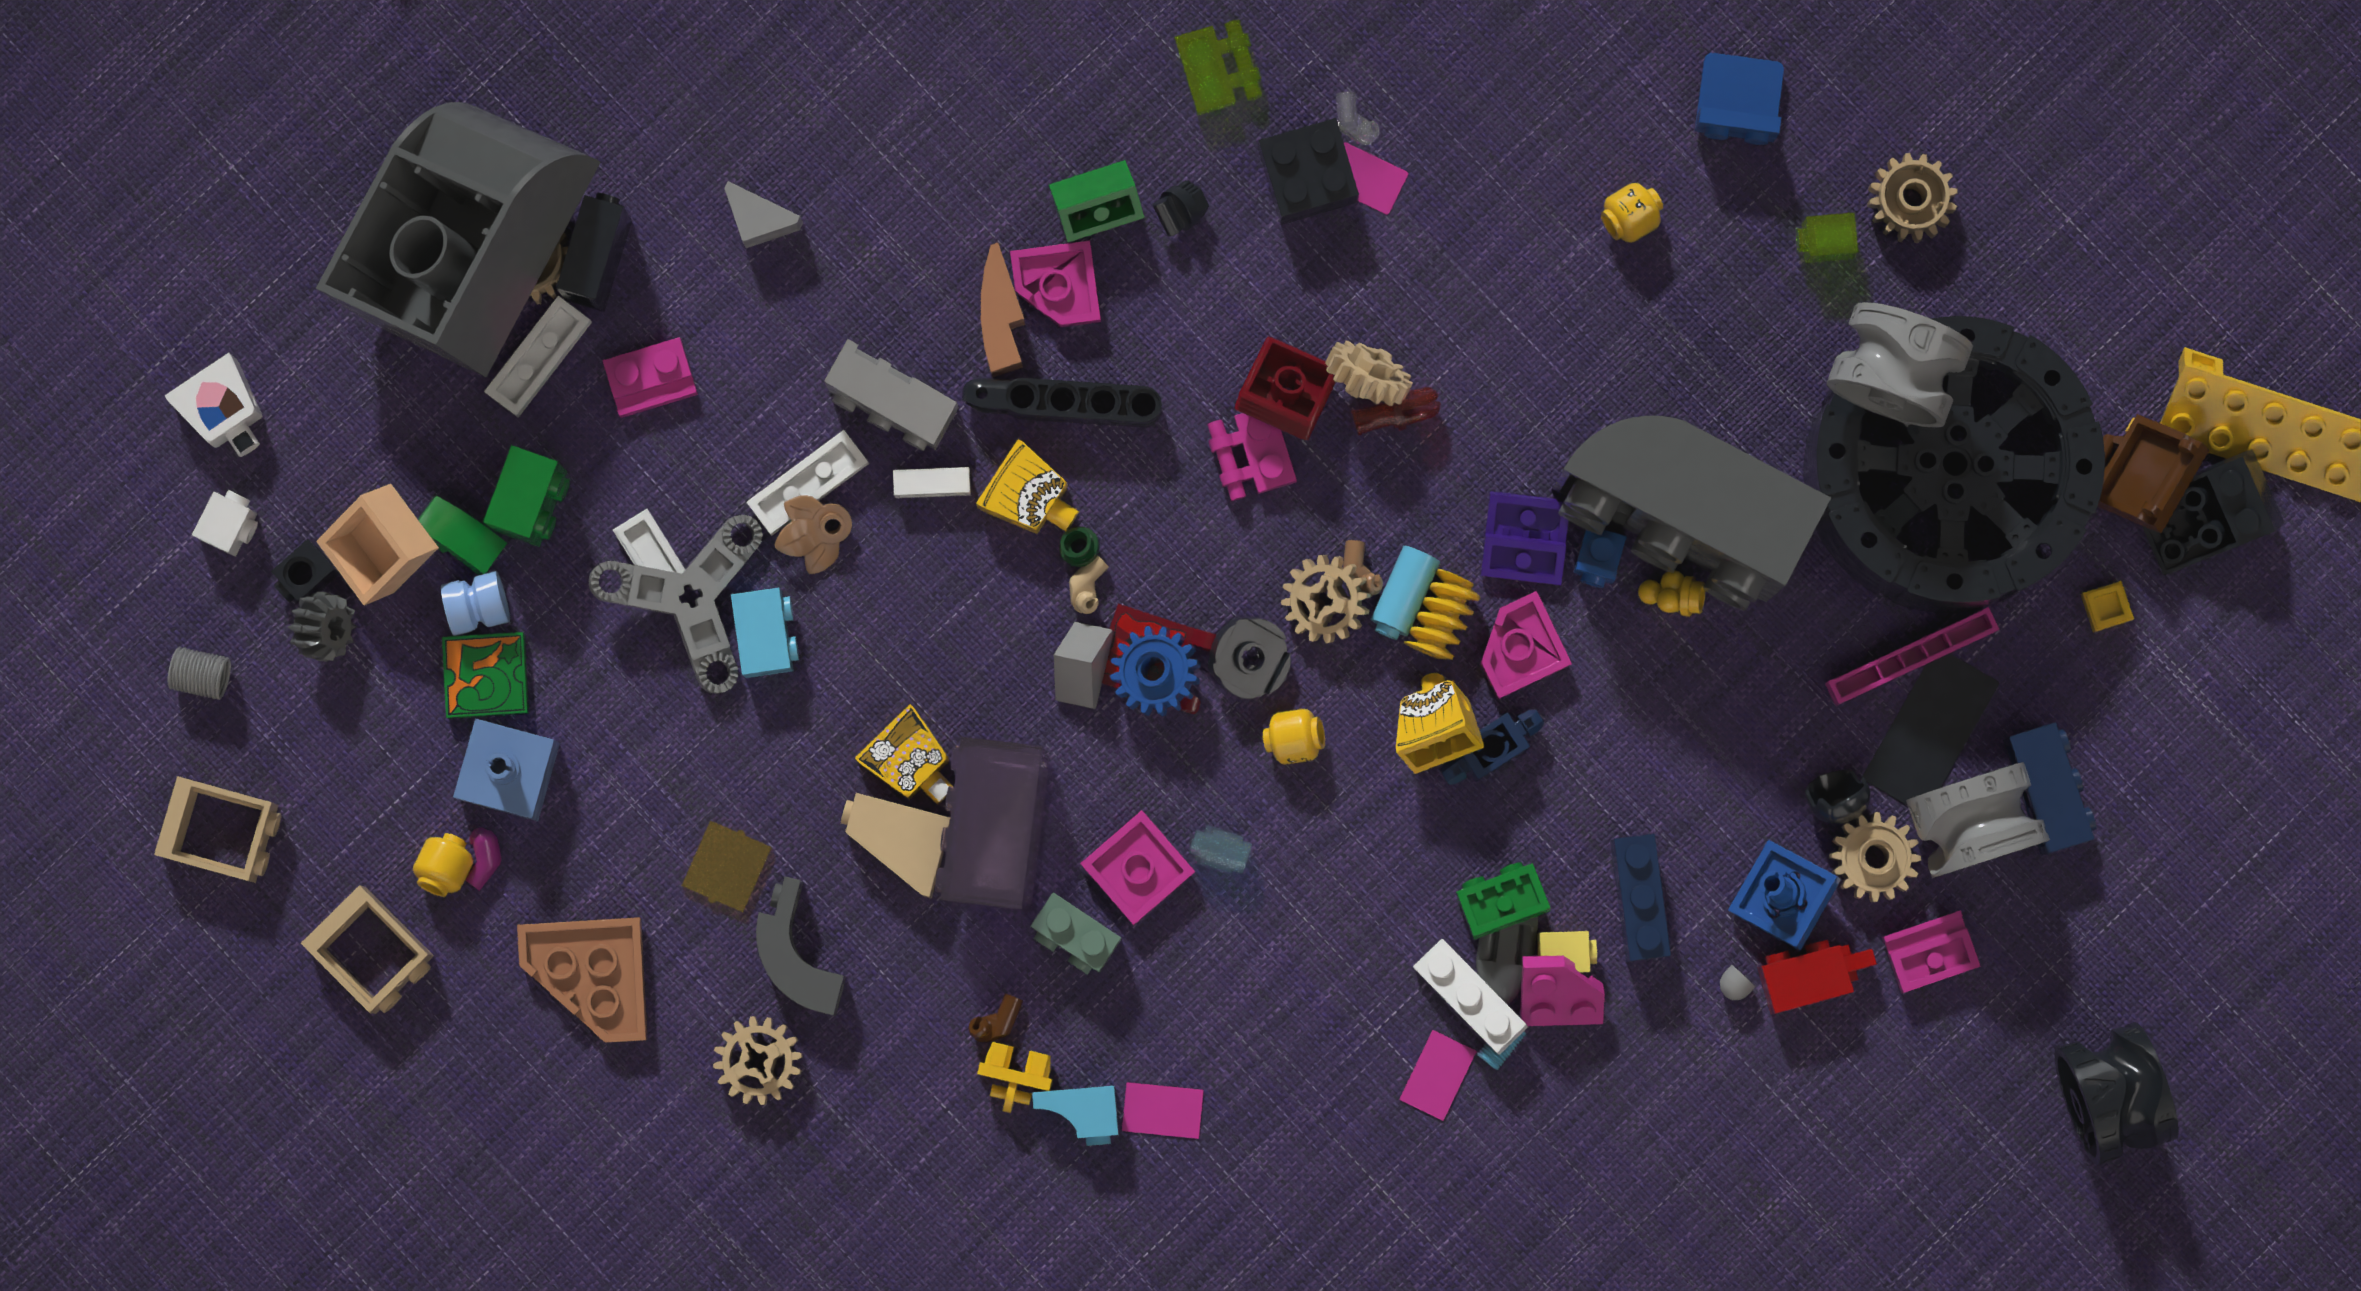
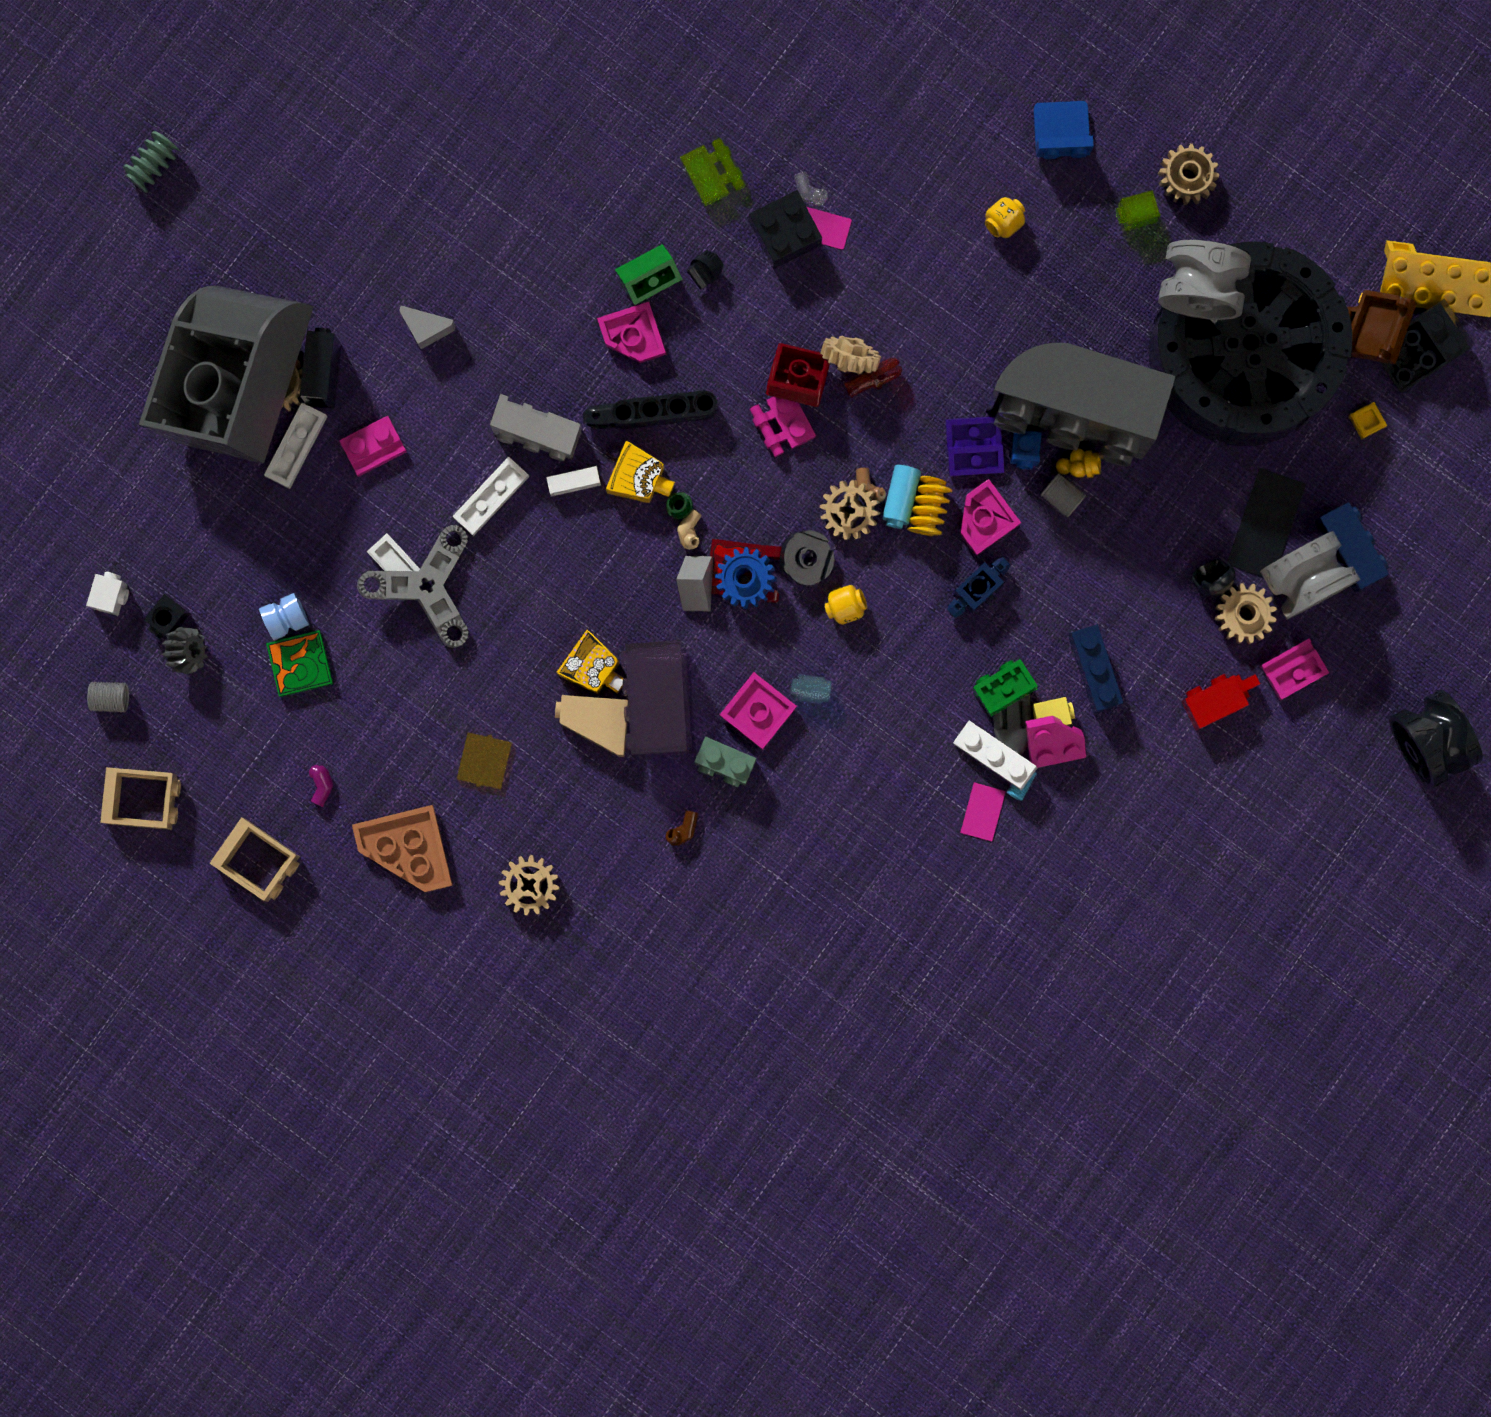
camera: 10 degrees left, 0 degrees up
(219, 405) = (89, 516): white torso -> none
(377, 544) = (211, 588): light nougat piece -> none
(442, 865) = (294, 794): yellow head -> none
(461, 535) = (265, 572): green slope -> none
(506, 769) = (325, 723): medium blue brick -> none
(527, 496) = (305, 539): green brick -> none
(763, 632) = (479, 600): medium azure brick -> none
(782, 962) = (547, 827): dark grey arch -> none
(808, 535) = (496, 528): medium nougat plate -> none
(999, 315) = (598, 362): nougat slope -> none
(1035, 1074) = (715, 861): yellow hips -> none
(1088, 1109) = (755, 877): medium azure arch -> none
(1162, 1110) = (804, 869): dark pink sticker -> none
(1436, 725) = (939, 579): yellow torso -> none
(1640, 634) = (1063, 495): none -> light grey piece
(1735, 984) = (1169, 715): light grey hinge -> none
(1771, 888) = (1181, 646): blue plate -> none
(1912, 656) = (1245, 477): dark pink piece -> none

